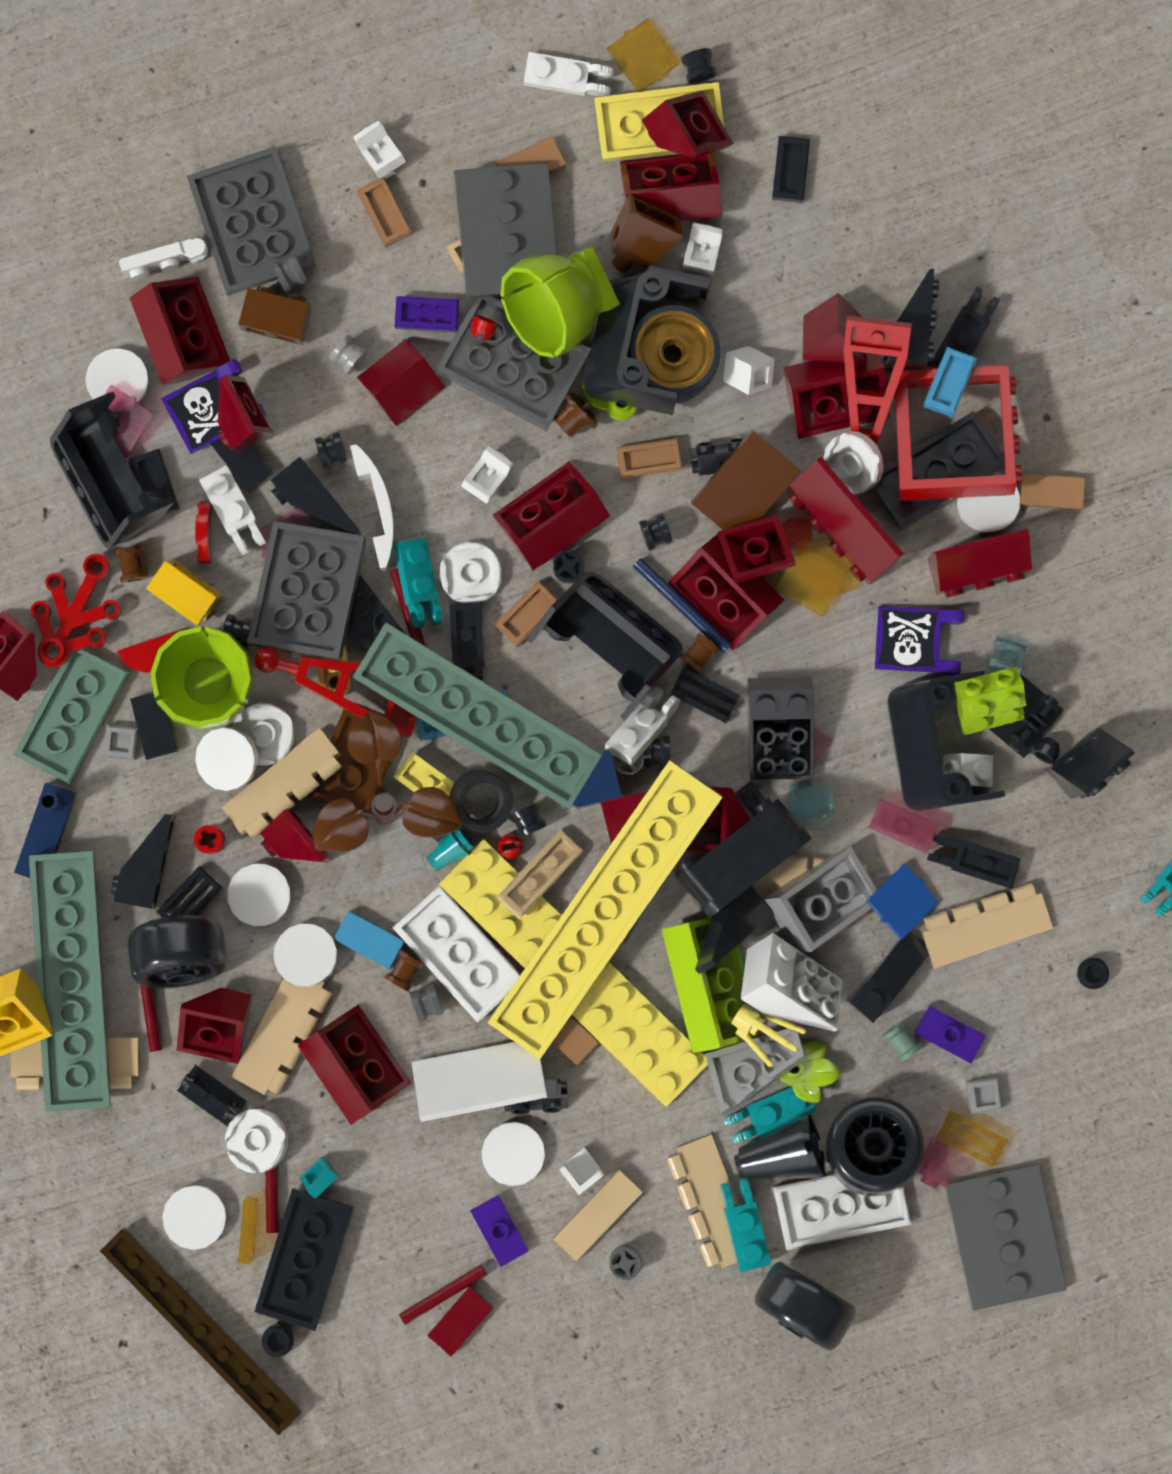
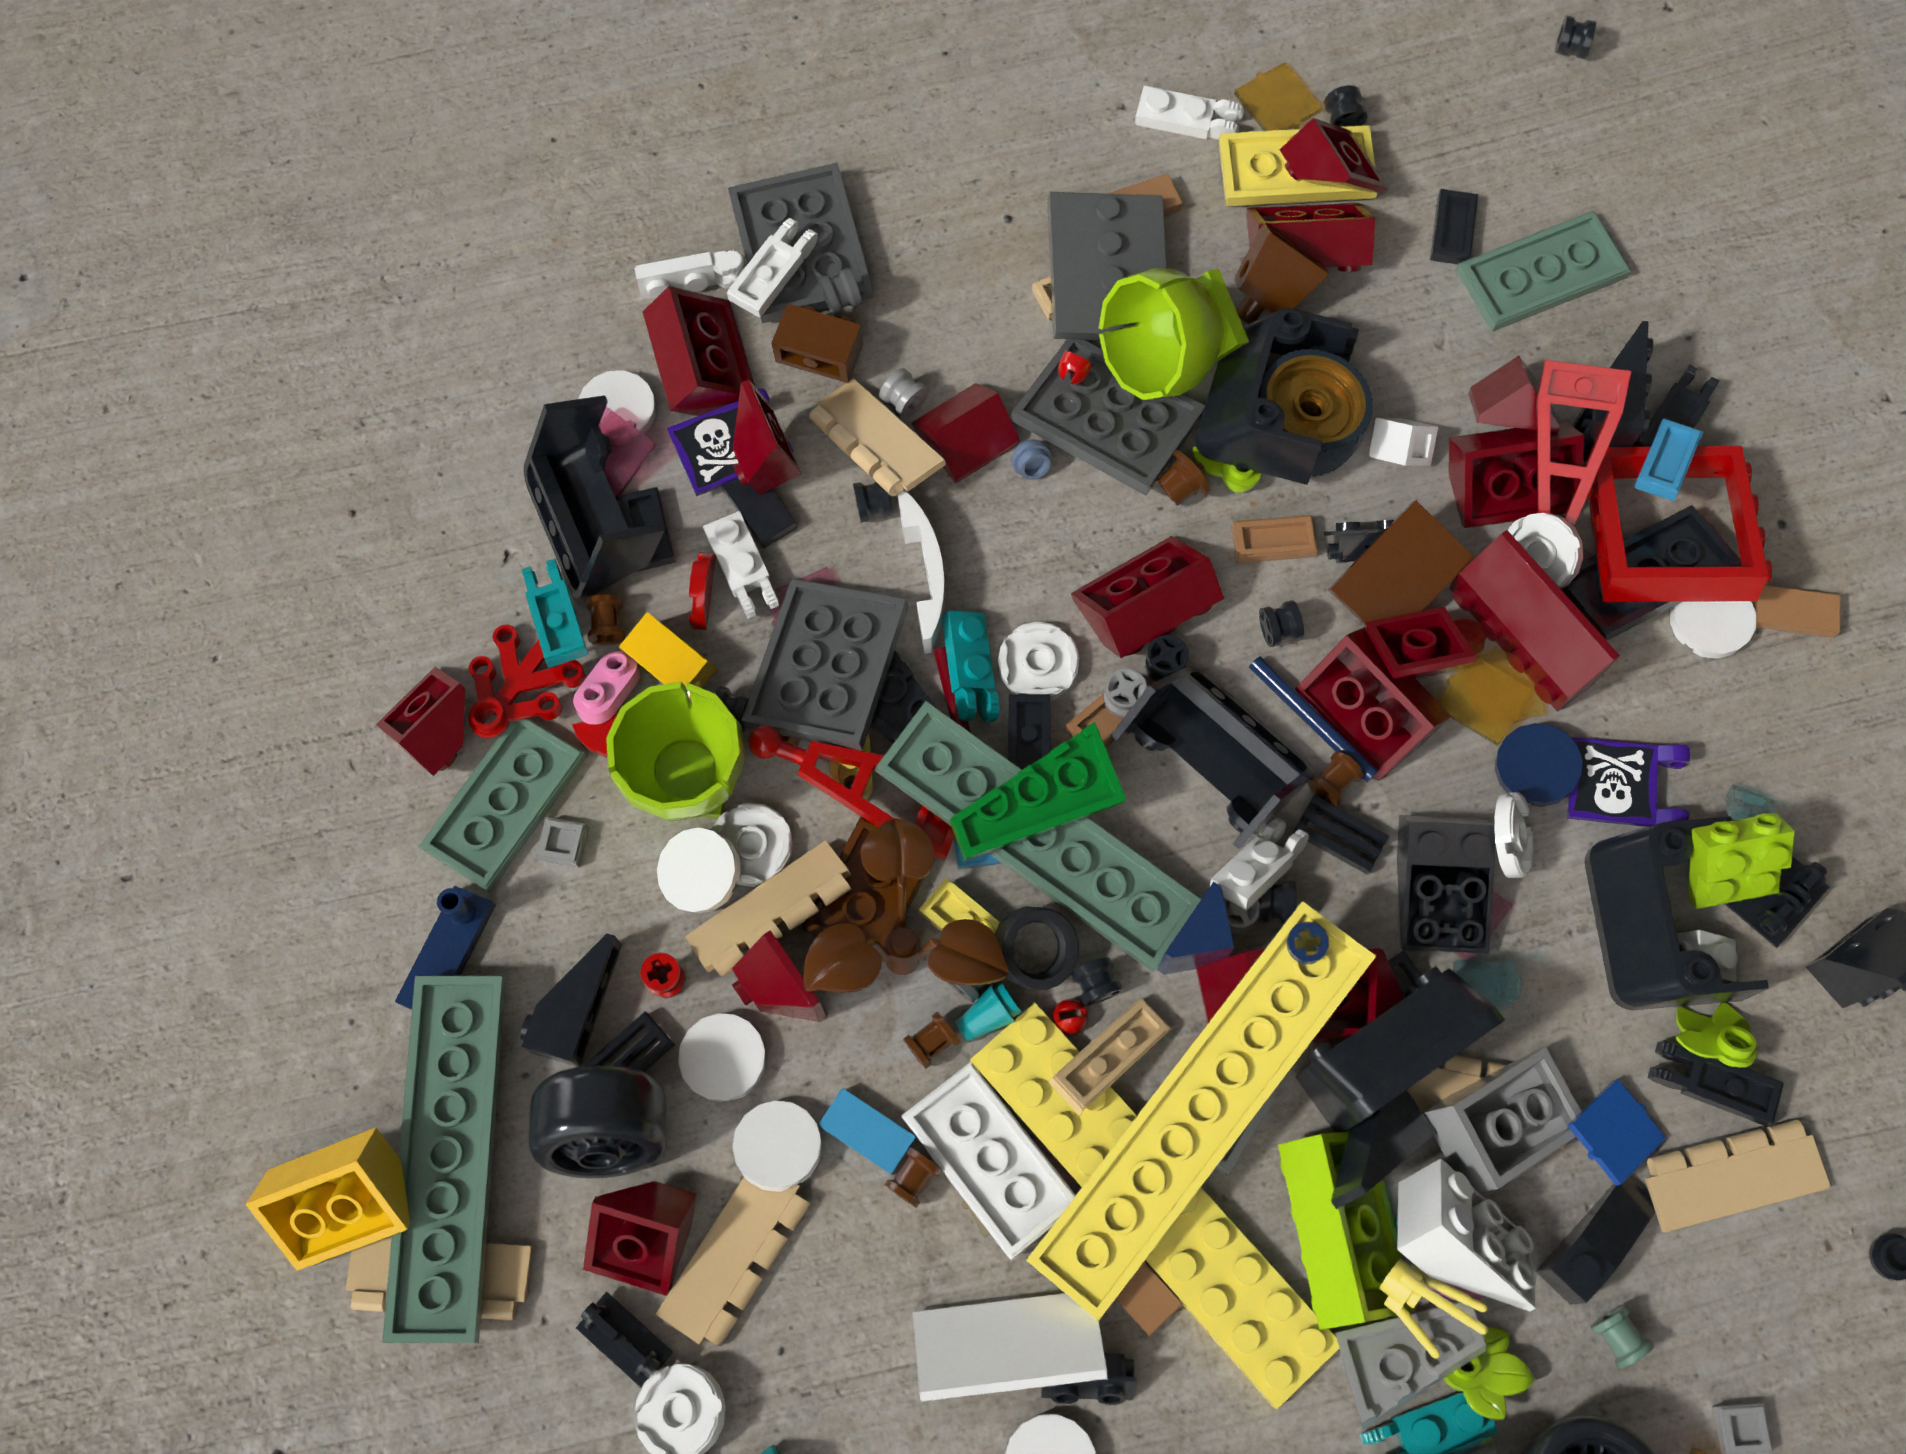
camera: 10 degrees right, 15 degrees down
(93, 569) = (554, 617): none -> teal hinge
(142, 618) = (609, 684): none -> bright pink plate
(151, 1019) = (553, 1220): dark red bar -> none
(153, 727) = (607, 824): black tile -> none
(231, 254) = (771, 268): none -> white hinge
(308, 495) = (839, 551): black slope -> none
(328, 398) = (875, 438): none -> tan windscreen
(354, 1064) = (830, 1309): dark red slope -> none
(378, 149) = (957, 172): white bracket -> none
(384, 212) = (960, 244): medium nougat tile -> none
(410, 872) = (931, 1040): none -> reddish brown bush
(426, 314) = (1003, 355): dark purple plate -> none
(426, 1003) = (940, 1226): dark grey wheel -> none
(454, 404) = (1031, 459): none -> sand blue plate
(483, 687) = (1050, 793): none -> green wing
(487, 474) = (1069, 540): white bracket -> none
(533, 595) = (1123, 683): none -> light grey wheel
(667, 801) = (1314, 930): none -> dark blue bush
(702, 250) = (1349, 297): white bracket -> none
(828, 691) = (1512, 836): none -> white tile
(851, 631) = (1539, 764): none -> dark blue tile
(863, 205) = (1543, 270): none -> sand green tile
(903, 826) = (1615, 1027): clear pink plate -> none
(949, 1034) = (1689, 1332): dark purple plate -> none
(970, 828) = (1720, 1037): none -> lime plate
(981, 563) = (1713, 684): dark red slope -> none
(1046, 750) = (1809, 939): black hinge -> none

